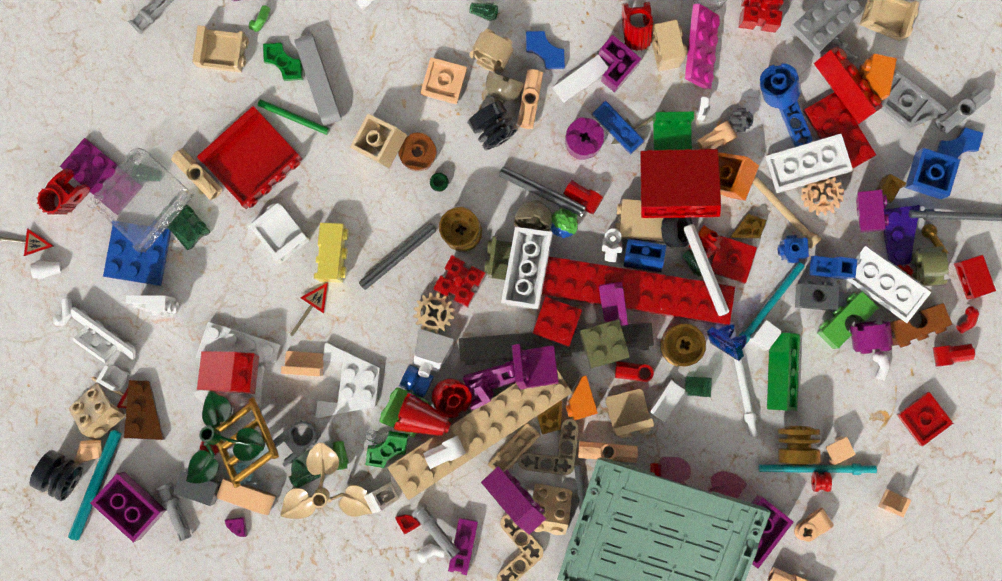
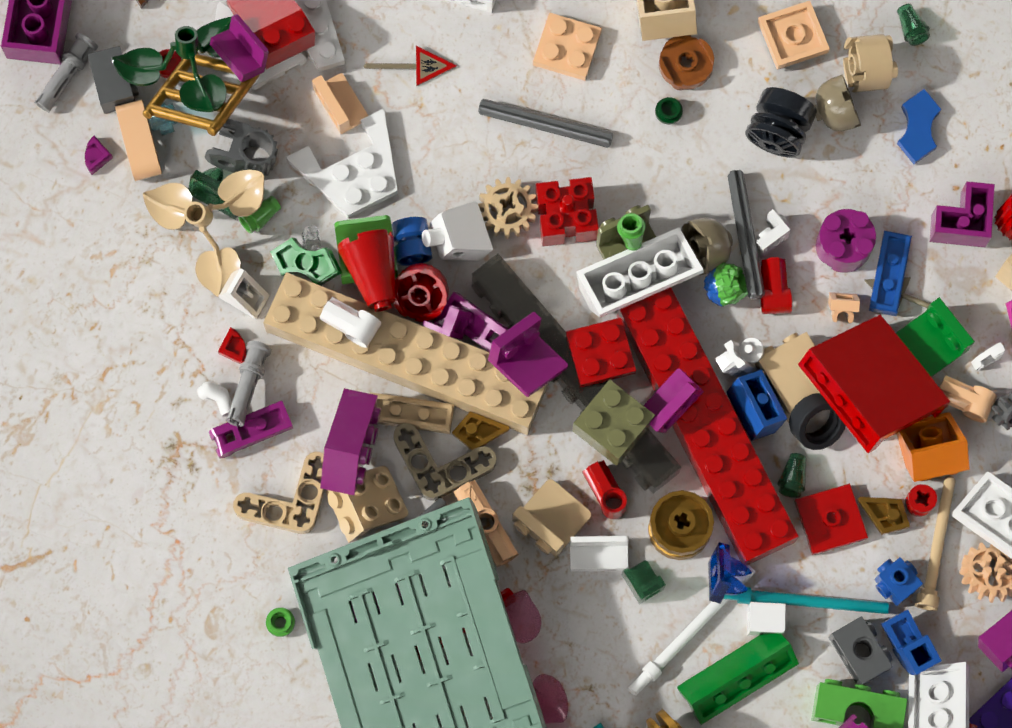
camera: 50 degrees right, 10 degrees down
(235, 404) = (241, 49): none -> magenta panel
(331, 252) = (493, 44): light yellow wedge -> none
(360, 212) = (567, 46): none -> light nougat plate
(450, 226) = (629, 155): pearl gold wheel -> none
(498, 254) = (631, 229): none -> bright green cone
(531, 88) = (861, 139): light nougat piece -> none
(553, 179) = (770, 239): none -> white bracket
(580, 79) = (914, 189): white tile -> none
(581, 400) = (526, 445): orange slope -> none
(618, 165) = (843, 303): none -> light nougat tile
(706, 270) = (791, 484): white axle -> none
(710, 240) = (827, 468): red brick -> none
(753, 206) = (916, 504): none -> red wheel

